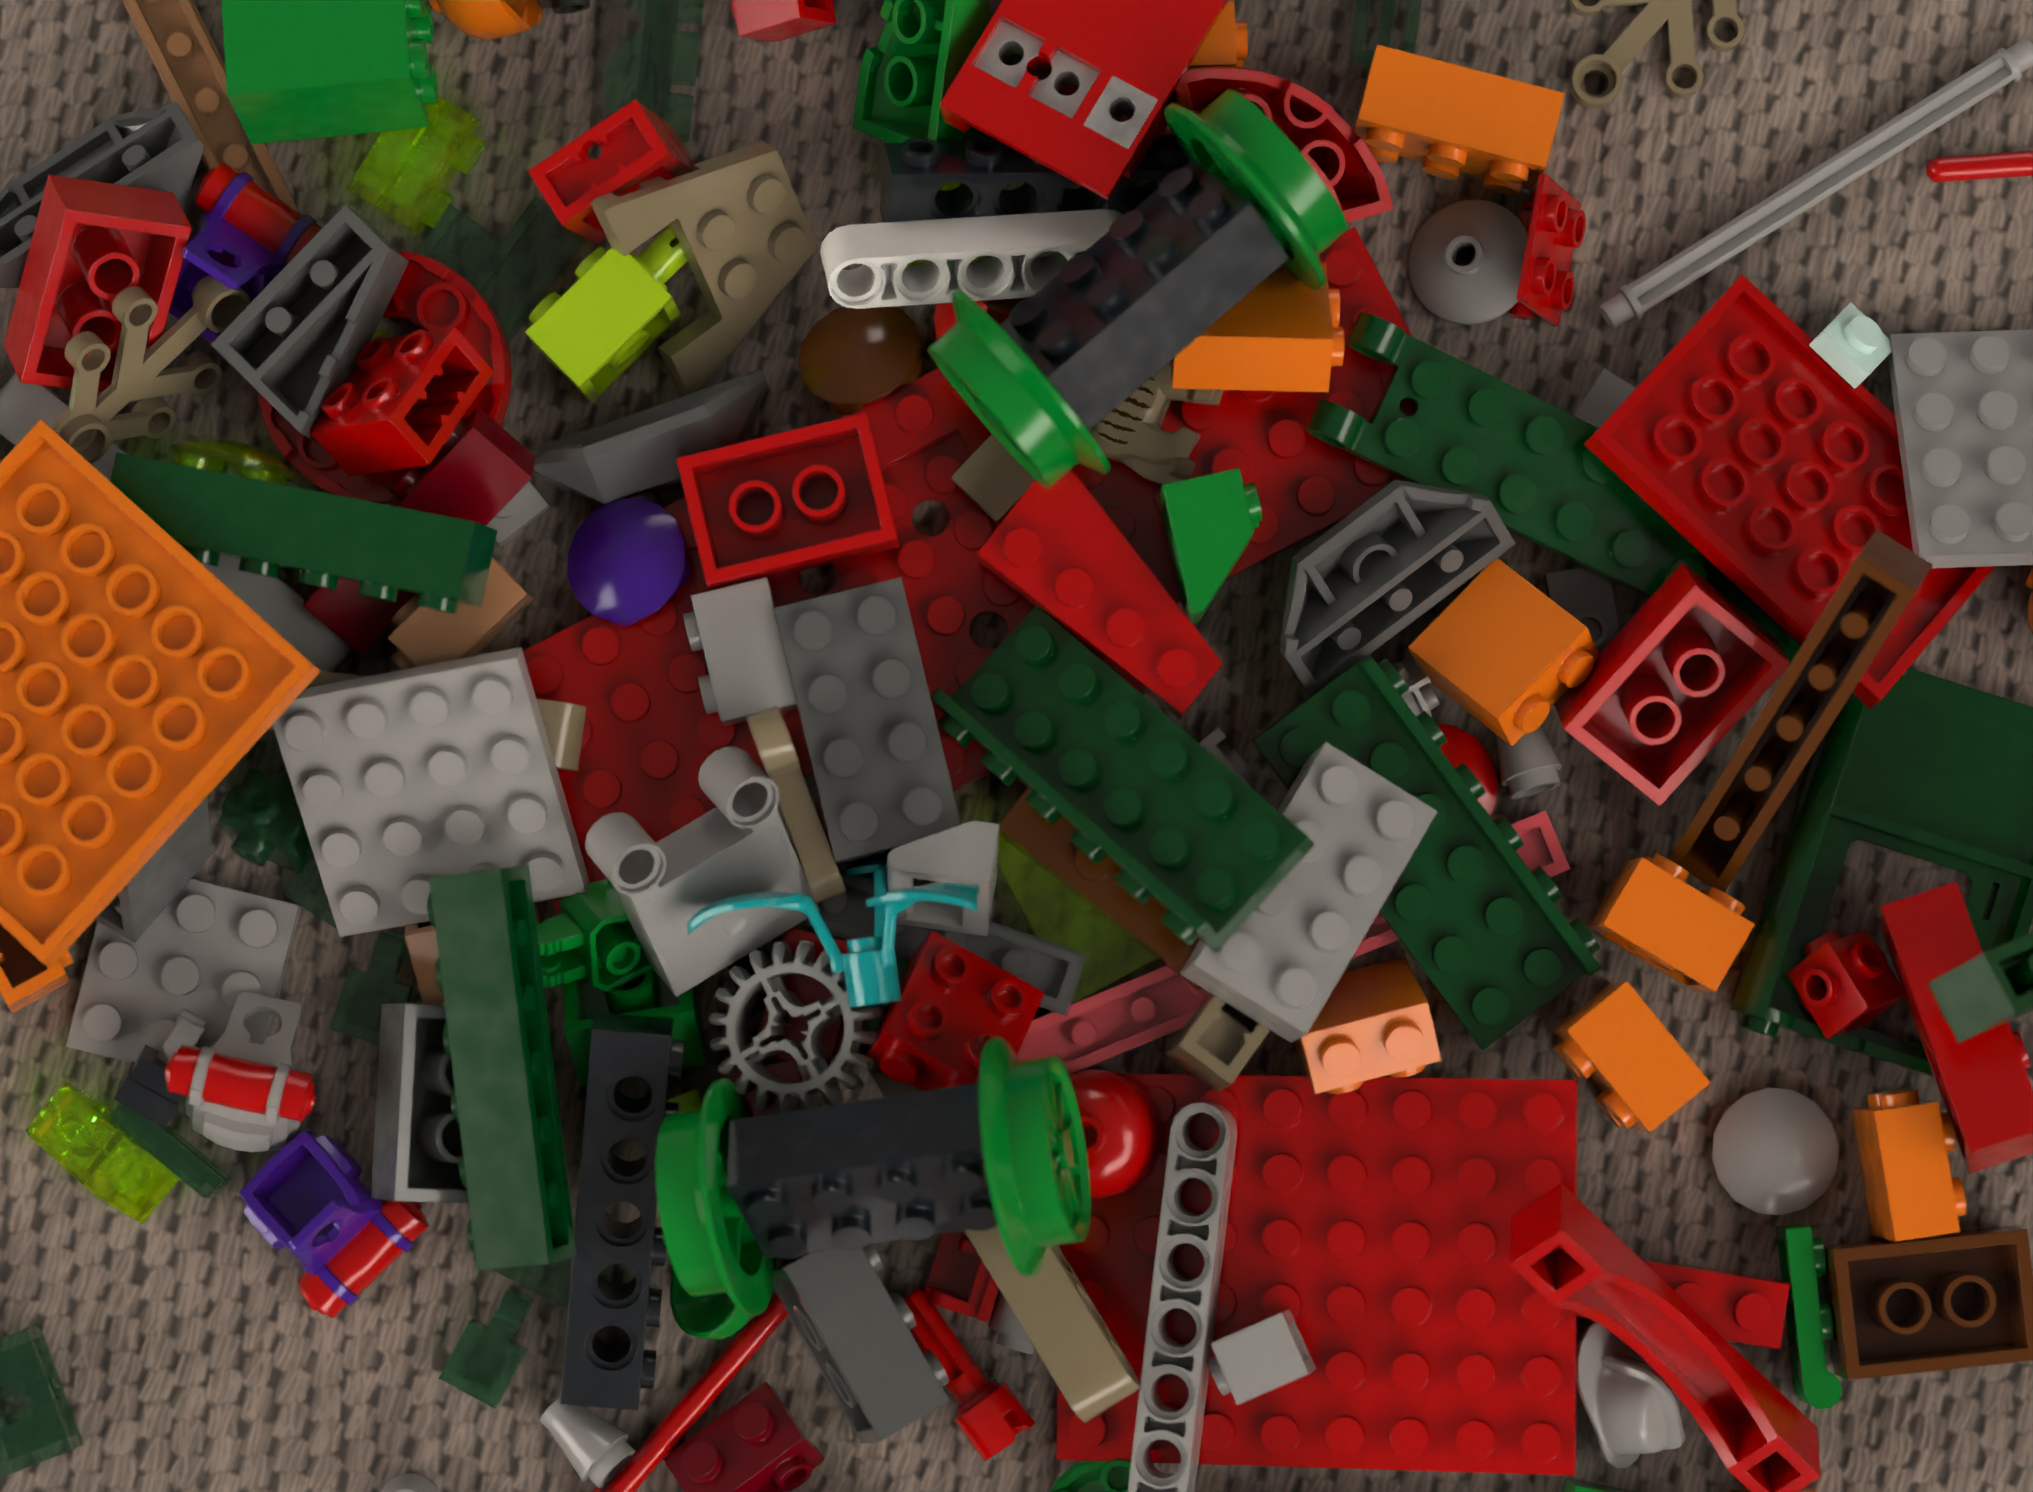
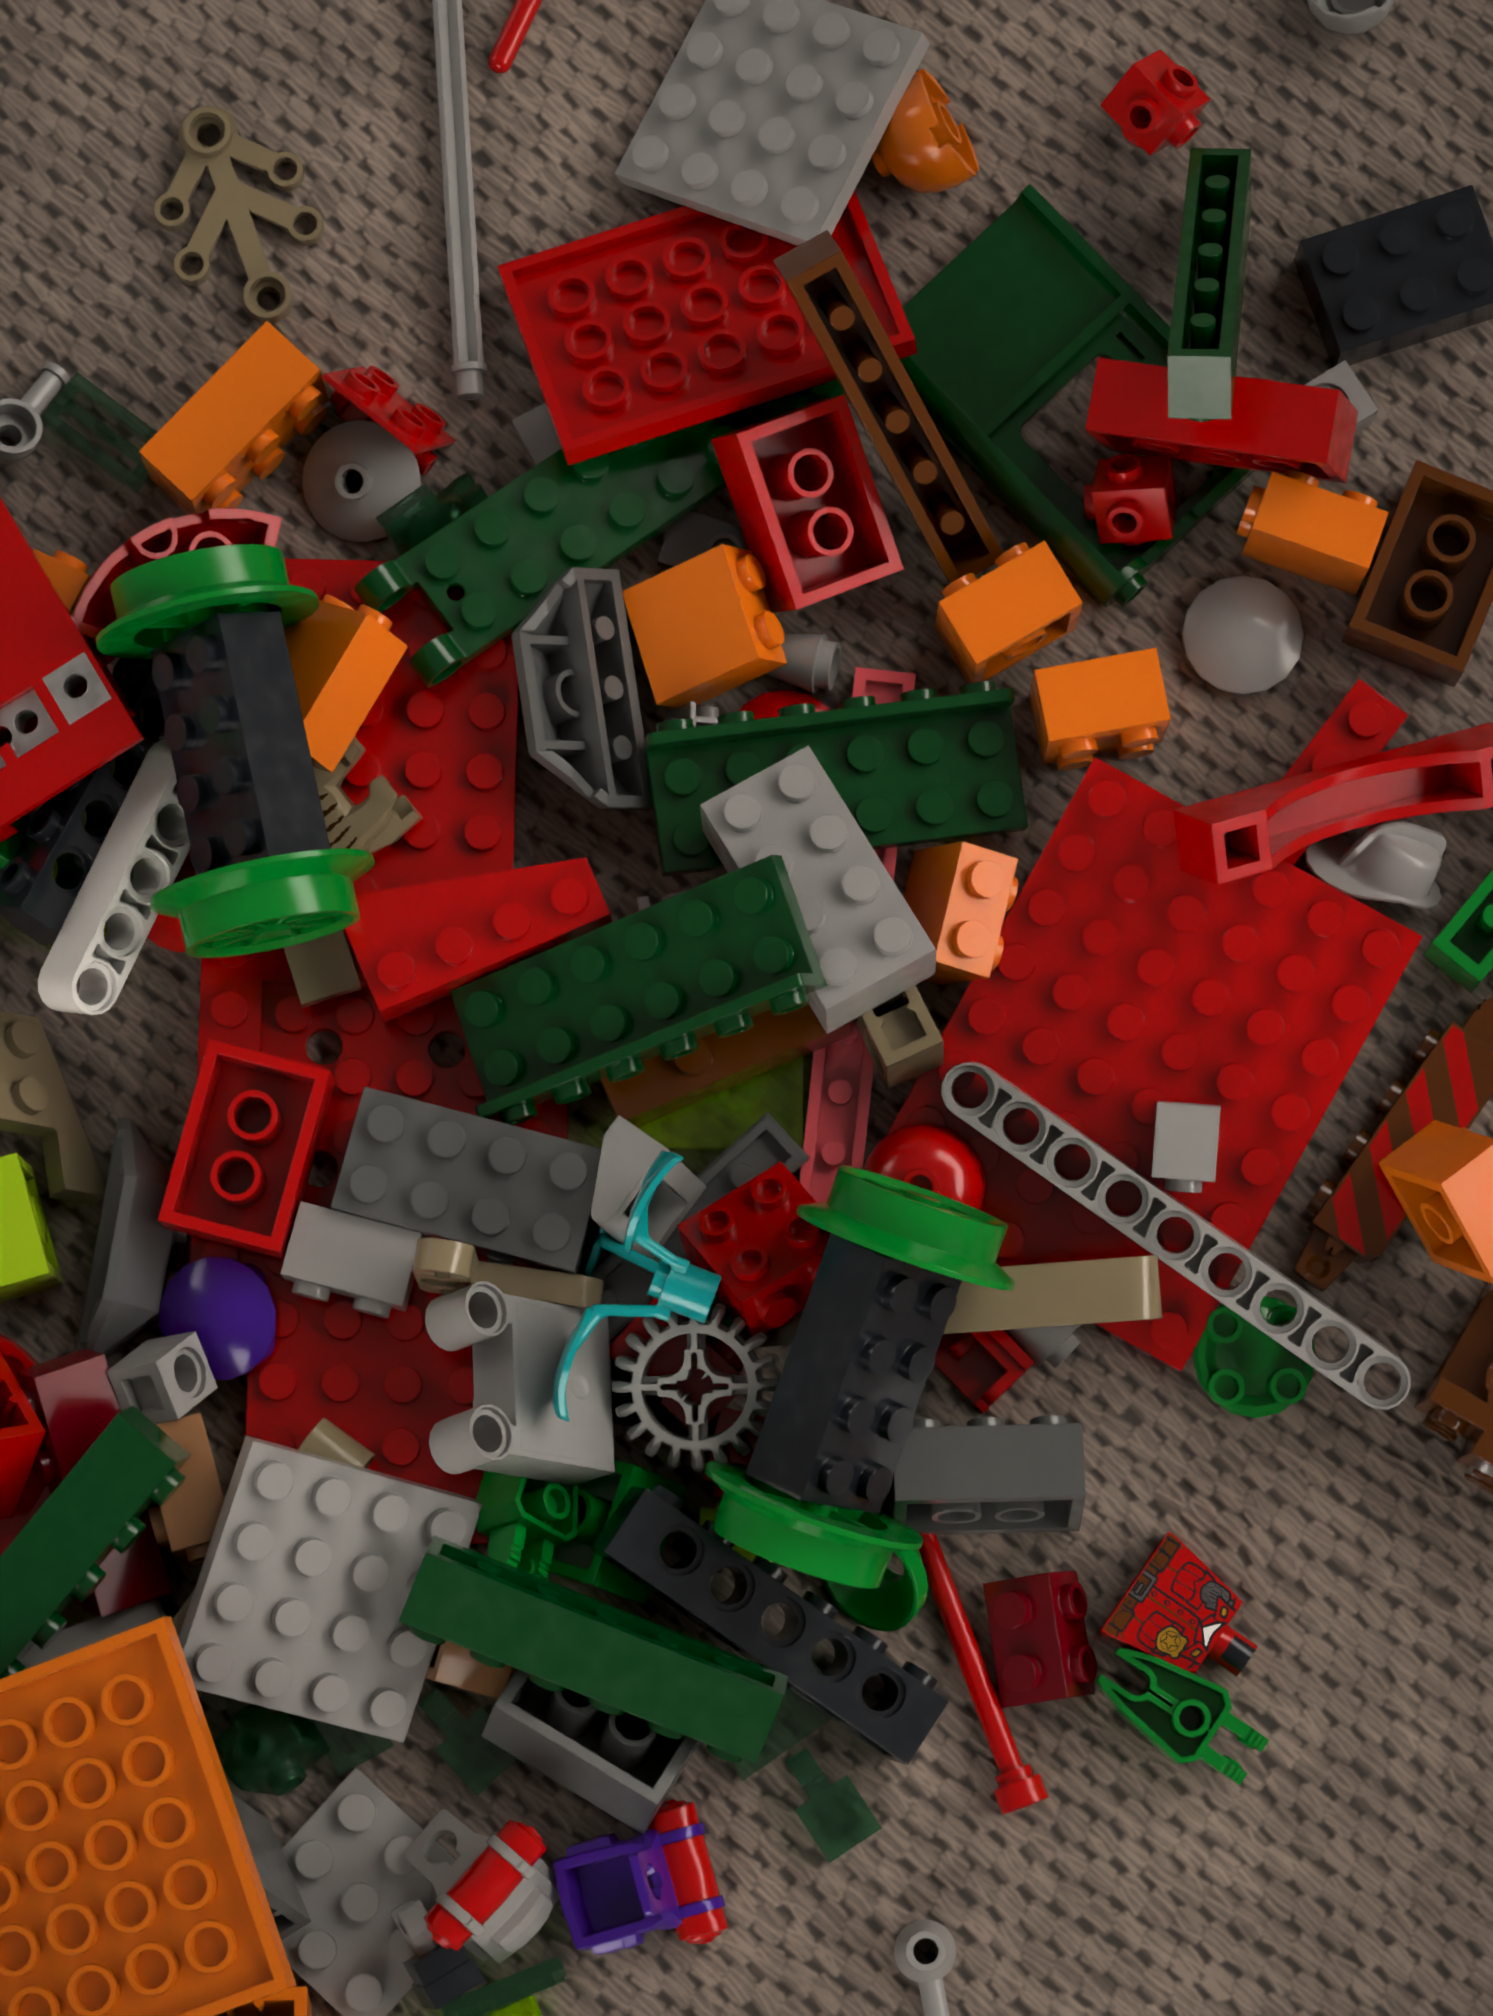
camera: 65 degrees left, 5 degrees down
(541, 542) = (163, 1377): none -> light grey brick
(588, 1441) = (951, 1764): light grey cone -> none
(859, 356) = (153, 1030): reddish brown dish -> none
(986, 1410) = (1109, 1407): red piece -> none
(1207, 532) = (469, 813): green slope -> none
(1469, 338) = (425, 513): none -> clear green plate
(1806, 1318) = (1398, 681): green plate -> none
(1852, 345) = (606, 208): light aqua plate -> none

